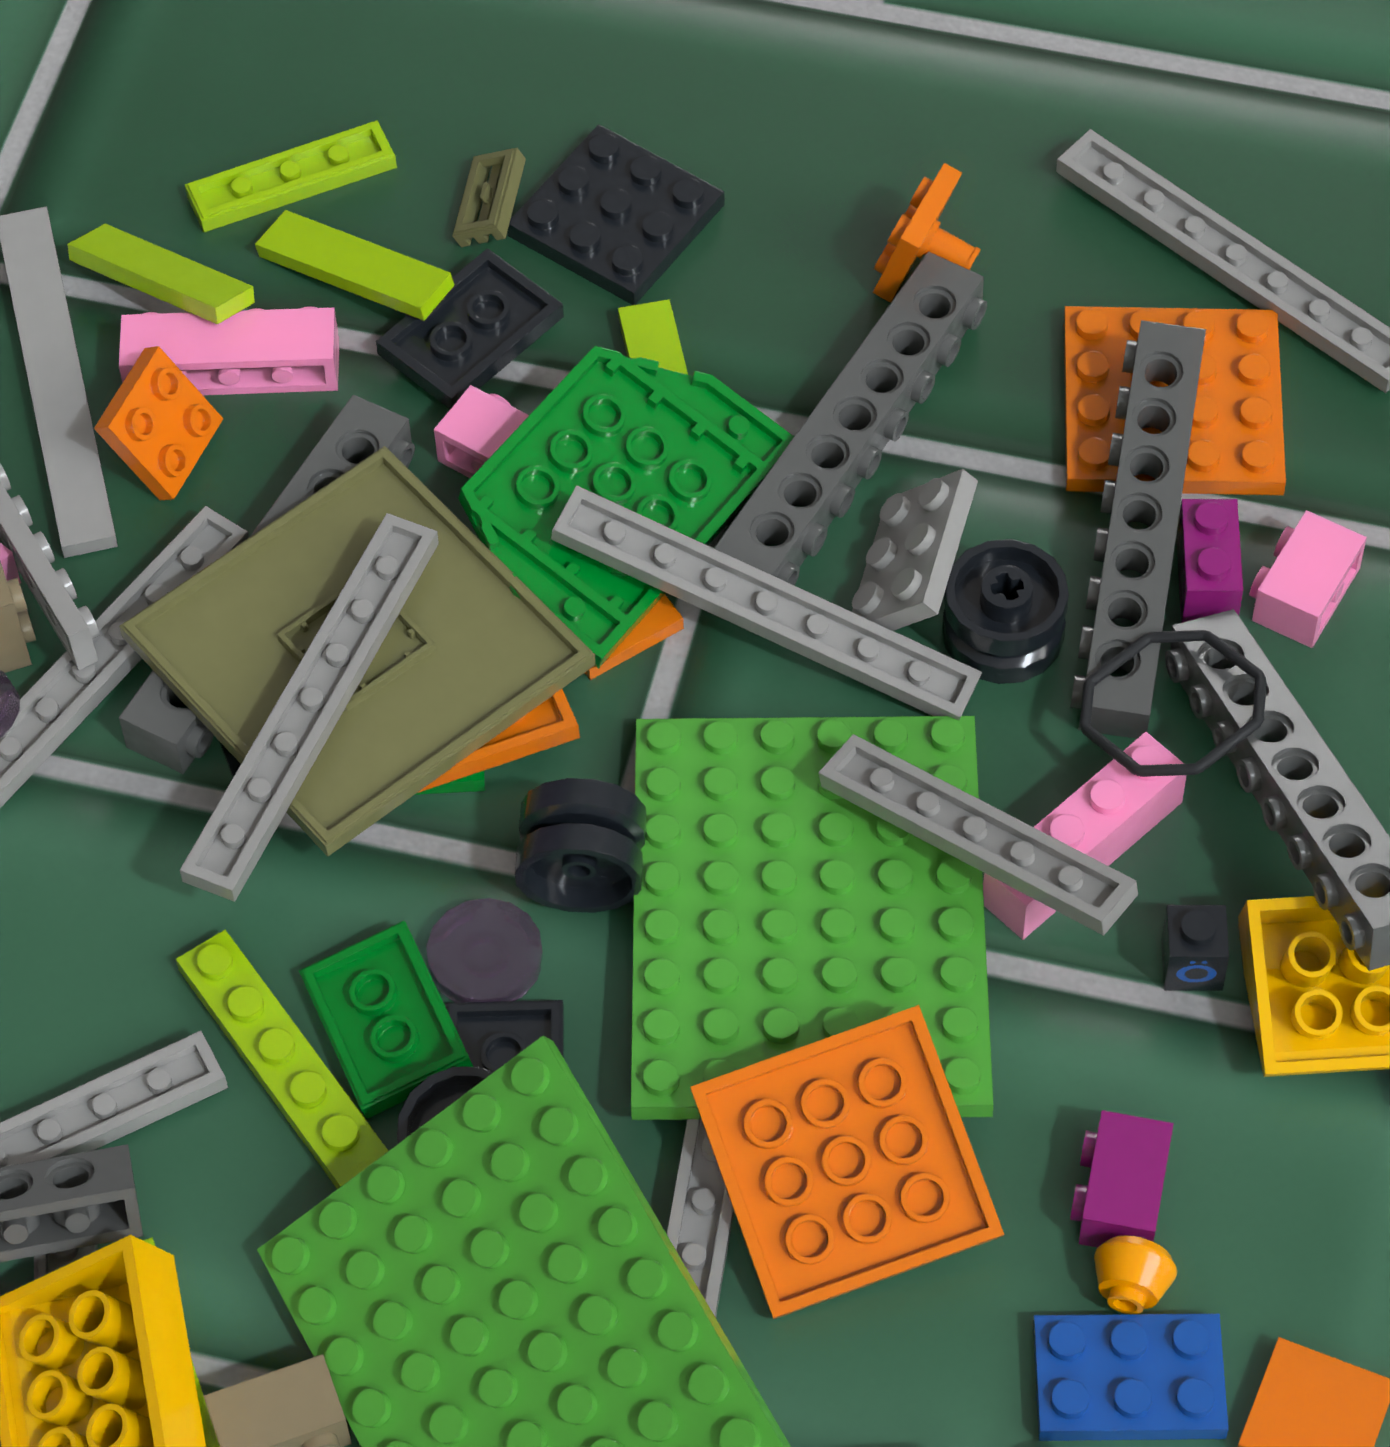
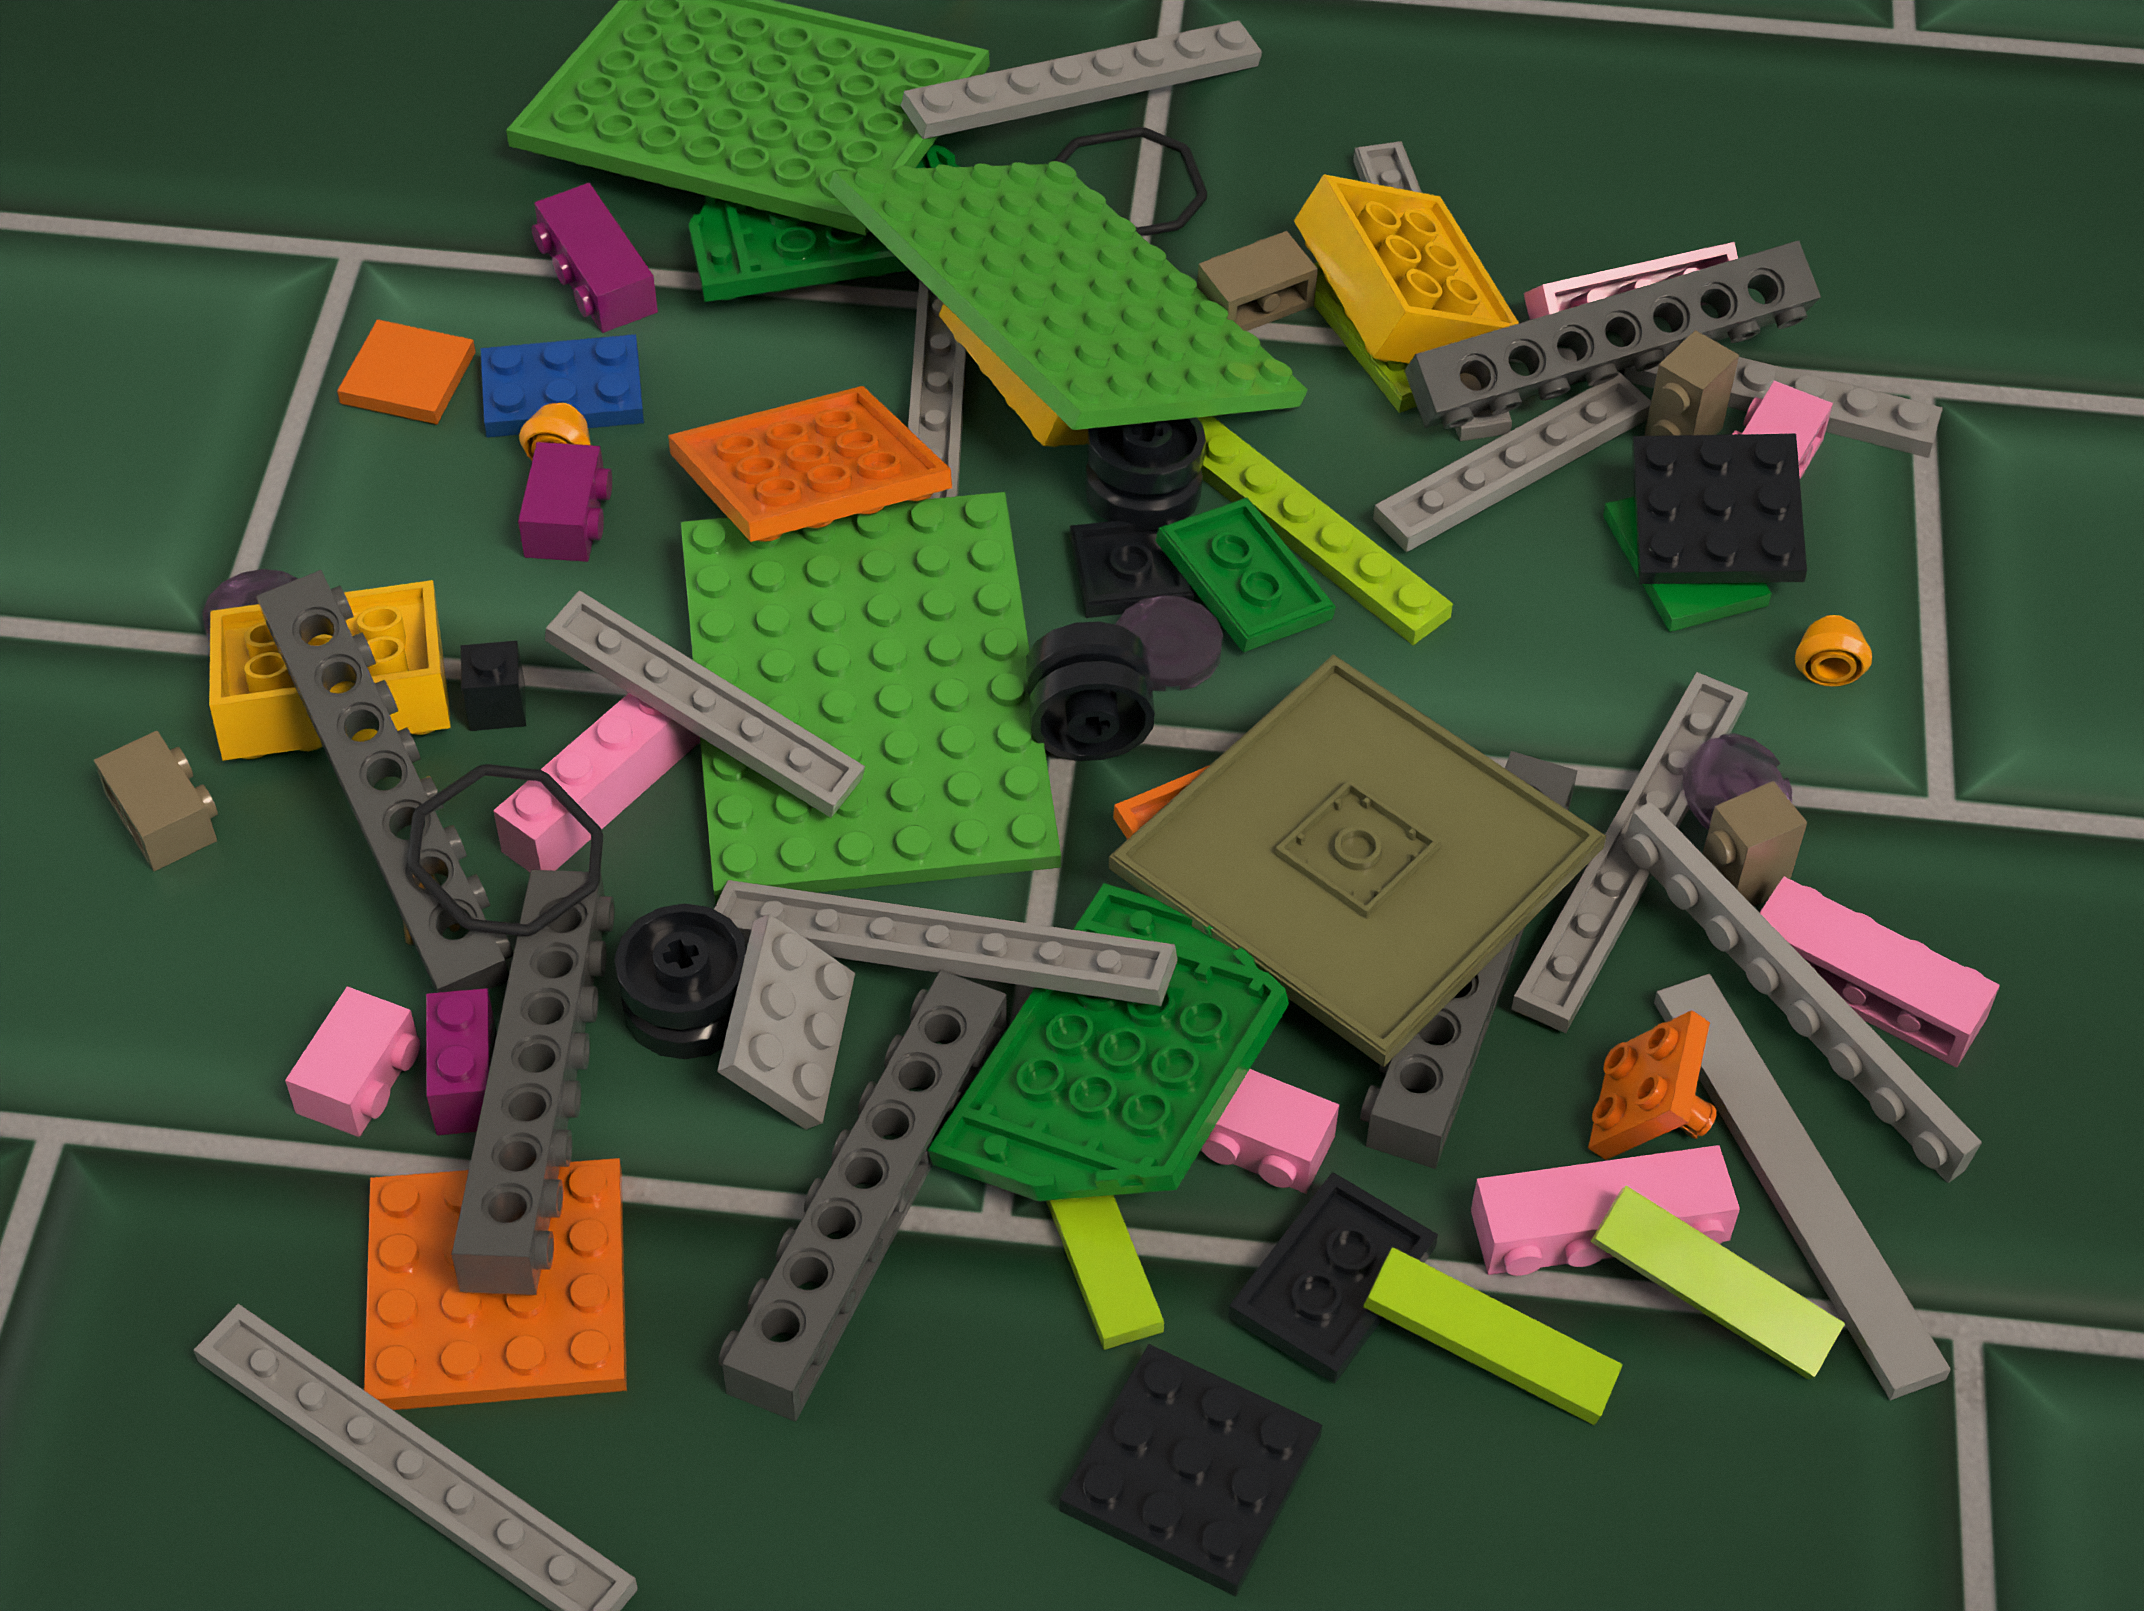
camera: 170 degrees right, 5 degrees down
(290, 176) = (1610, 1483): lime tile -> none
(309, 708) = (1377, 761): light grey plate -> none
(497, 196) = (1343, 1457): olive tile -> none
(920, 233) = (802, 1415): orange plate -> none

